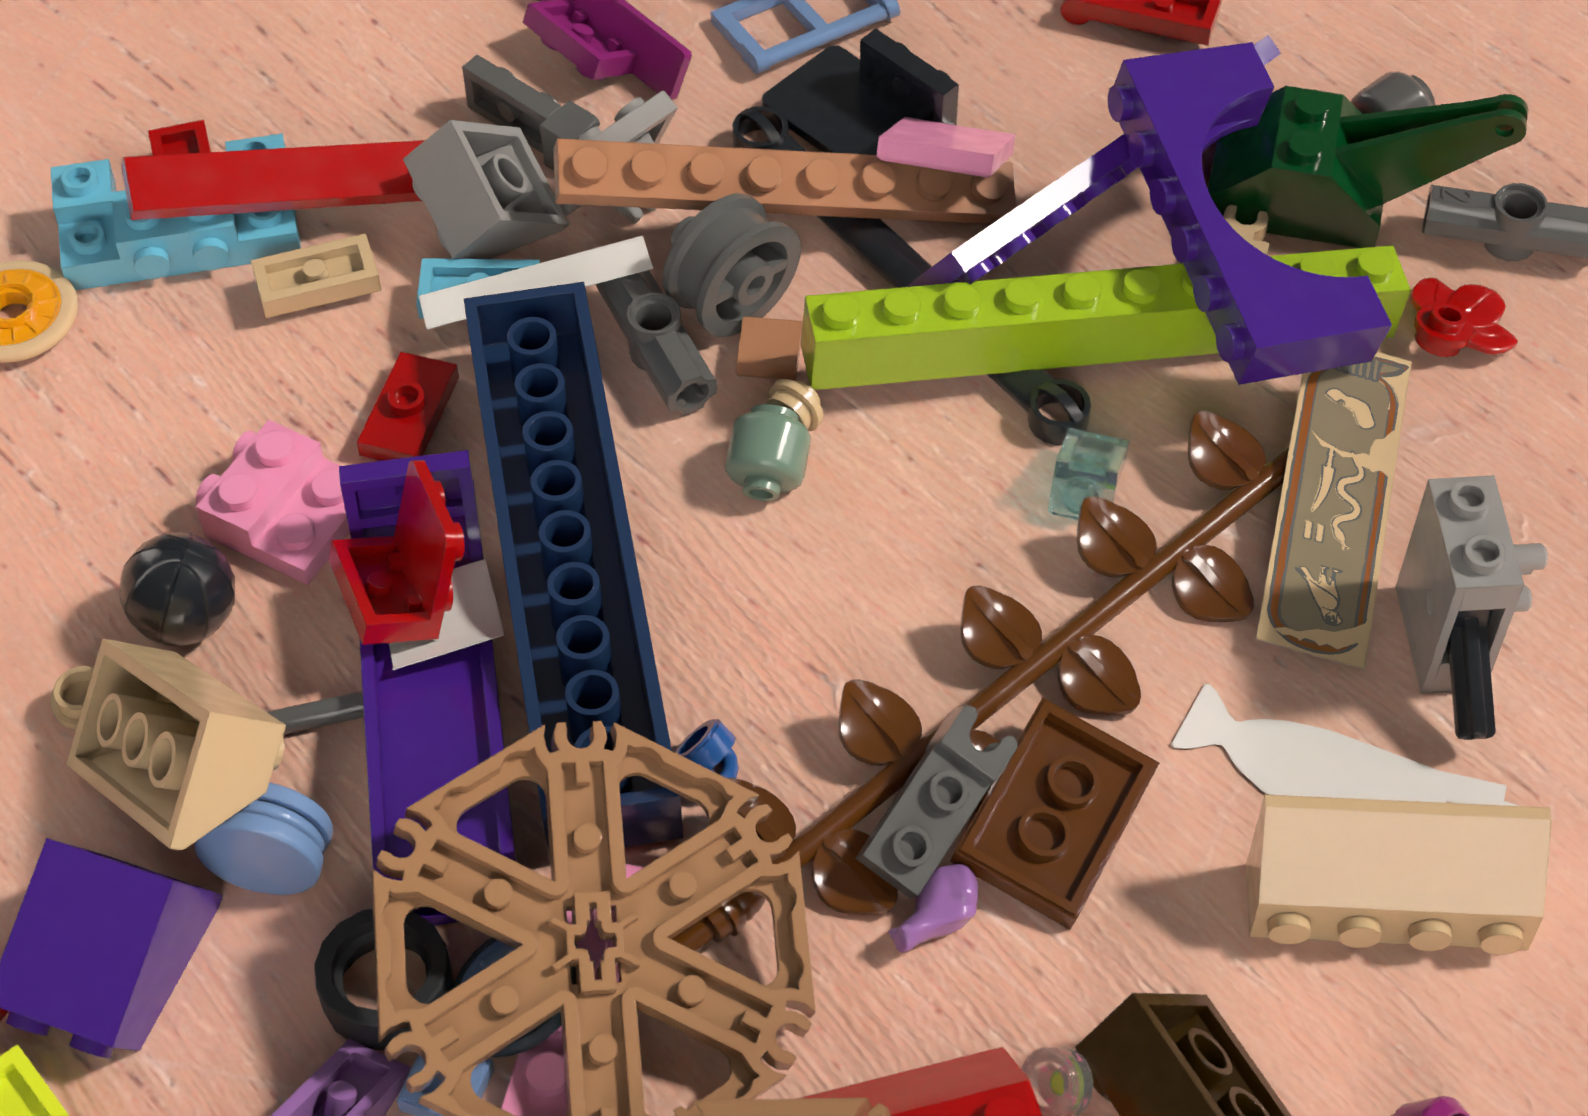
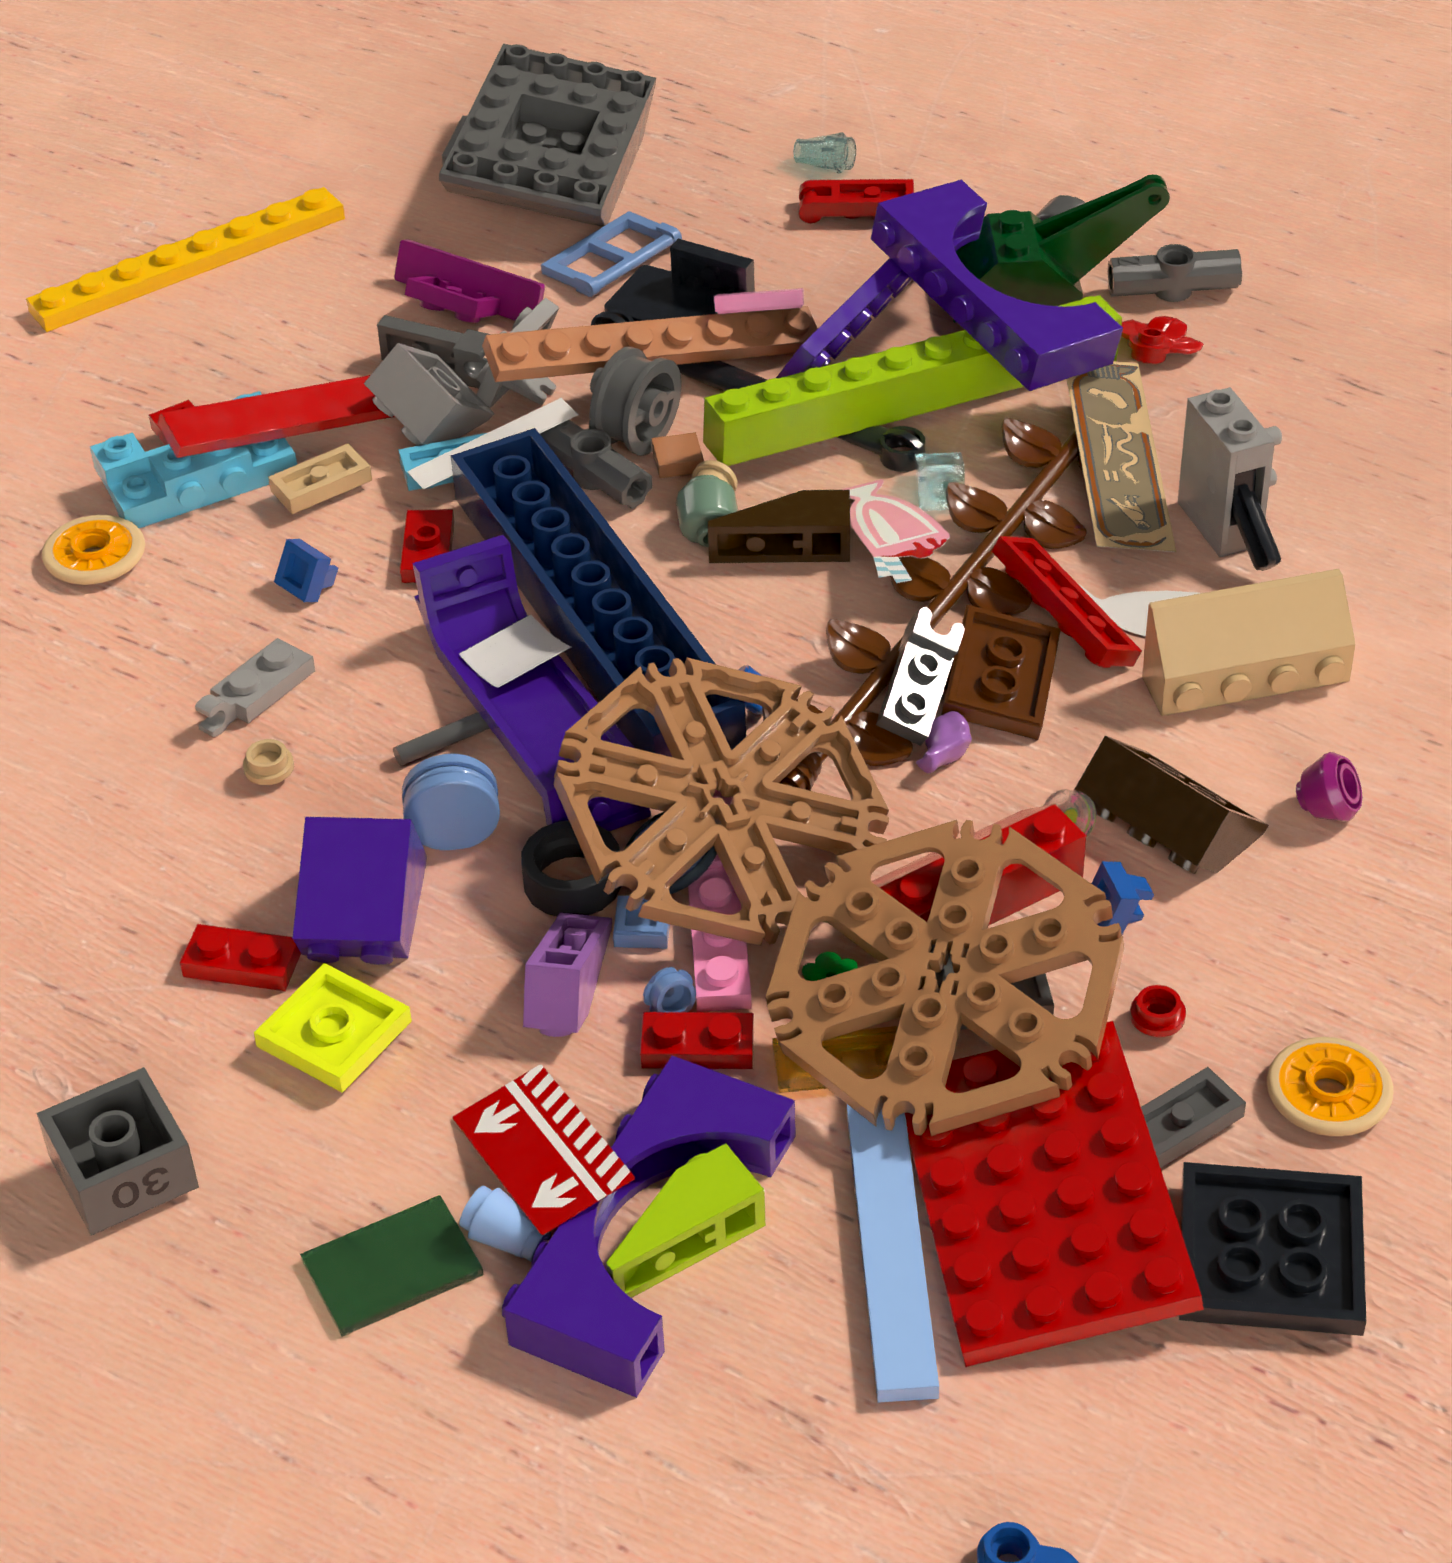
camera: 15 degrees left, 10 degrees down
(93, 578) = (254, 686): none -> light grey plate
(172, 742) = (361, 749): tan slope -> none
(177, 589) = (314, 676): black piece -> none
(237, 409) = (304, 570): none -> blue tile
(276, 502) = (359, 618): bright pink plate -> none
(402, 581) = (492, 614): red bracket -> none
(866, 508) = (785, 529): none -> dark brown slope
(989, 549) = (893, 529): none -> sticker
(1180, 725) = (1067, 602): none -> red plate

